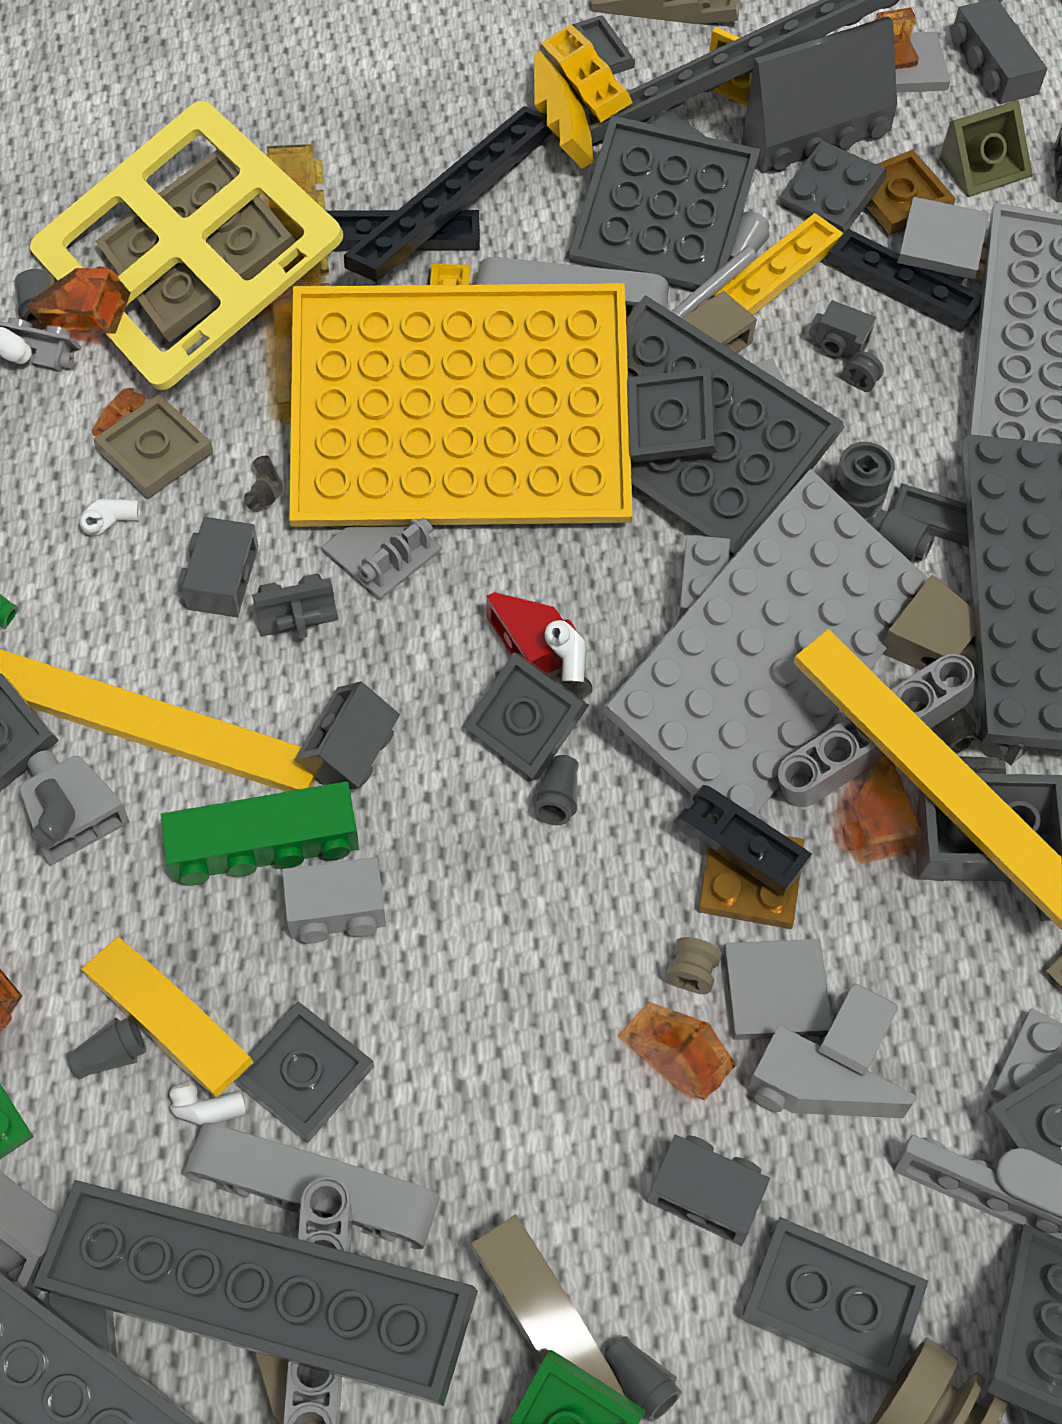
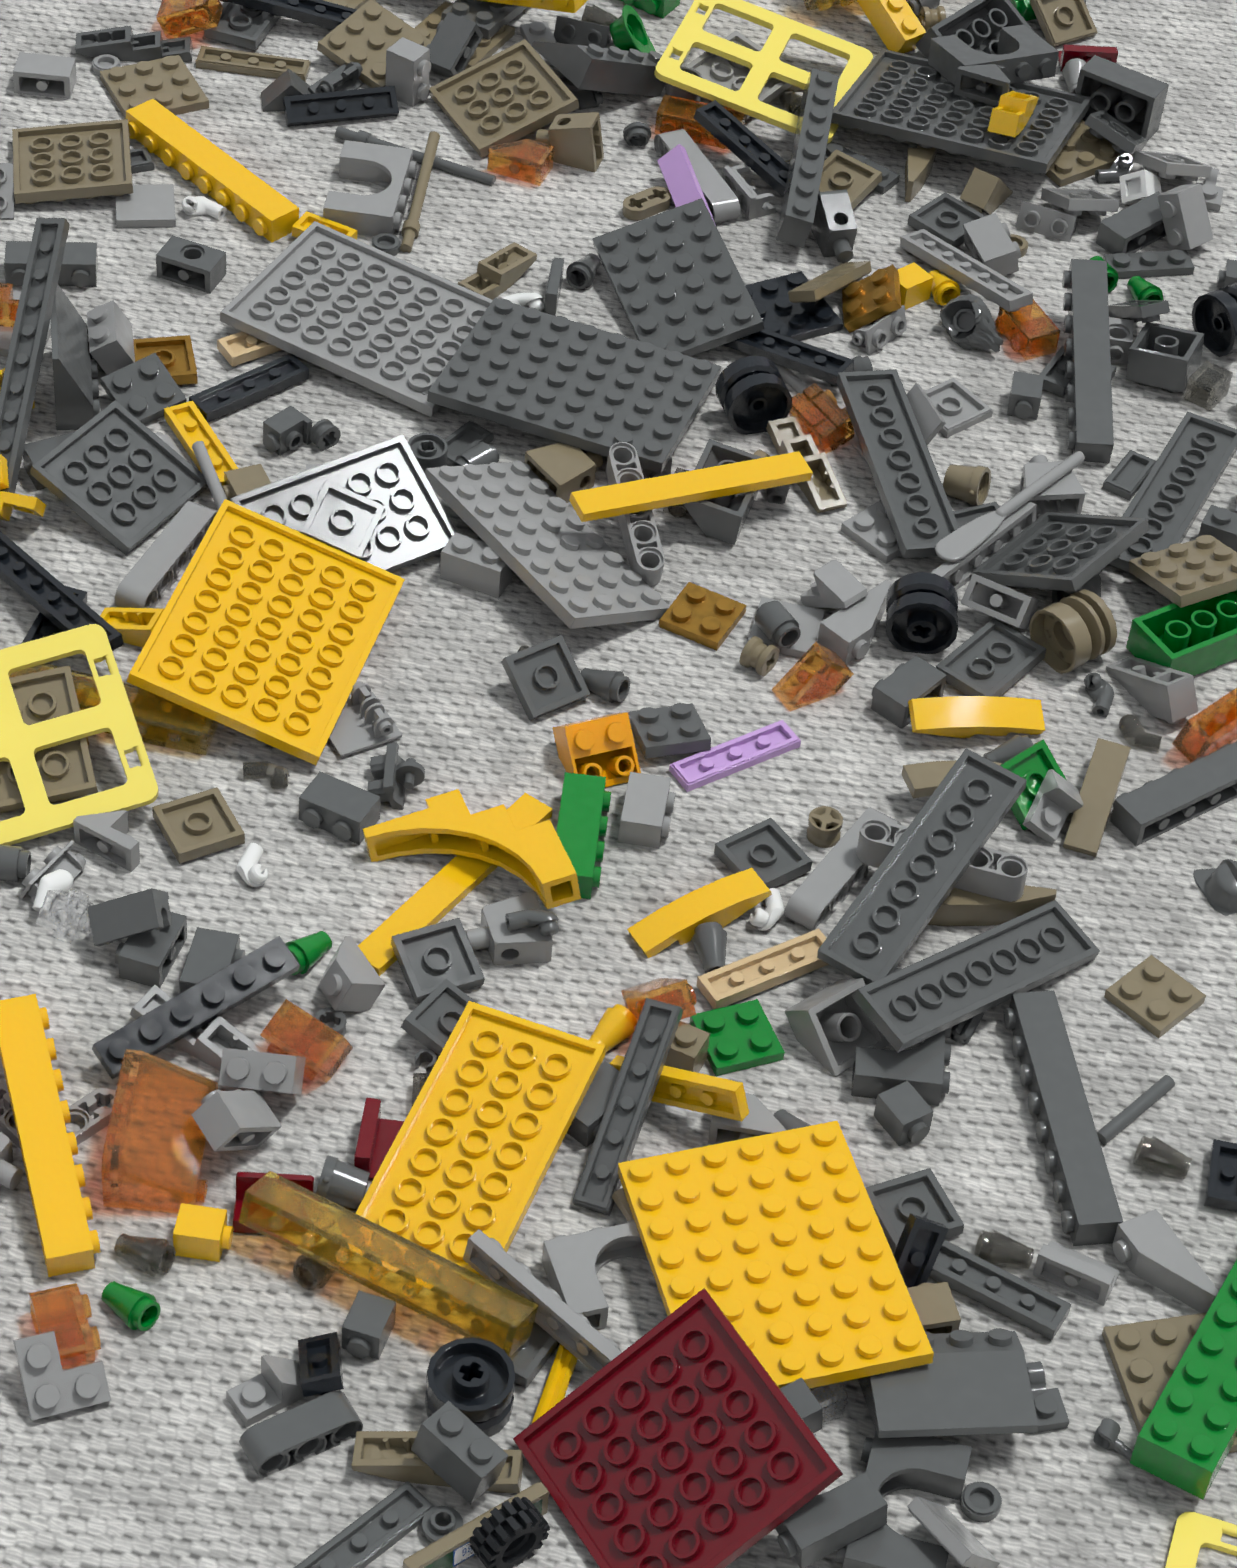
camera: 75 degrees left, 15 degrees down
(83, 301) = (48, 817): clear orange slope -> none
(89, 1127) = (762, 970): none -> tan plate
(99, 368) = (108, 837): none -> light grey slope
(115, 410) = (147, 836): clear orange arm -> none
(171, 771) = (488, 835): none -> yellow arch
(348, 736) = (524, 769): dark grey brick -> none
(386, 1127) = (824, 827): none -> dark tan wheel
(424, 813) = (598, 747): none -> light orange slope
(497, 988) = (734, 755): none -> lavender tile
(501, 890) = (669, 730): none -> dark grey plate
(522, 628) = (474, 662): red slope -> none
(569, 648) = (505, 633): white arm -> none
(692, 1307) = (976, 715): none -> yellow slope
(744, 839) = (686, 599): black plate -> none
(751, 968) = (777, 624): none -> dark grey brick
(863, 1165) = (922, 613): none -> black wheel
(881, 817) = (687, 540): clear orange slope -> none
(893, 126) = (110, 337): none -> light grey brick
(943, 238) = (231, 350): light grey tile -> none
(957, 1284) = (1000, 601): none -> light grey slope
(987, 149) = (153, 305): olive slope -> none

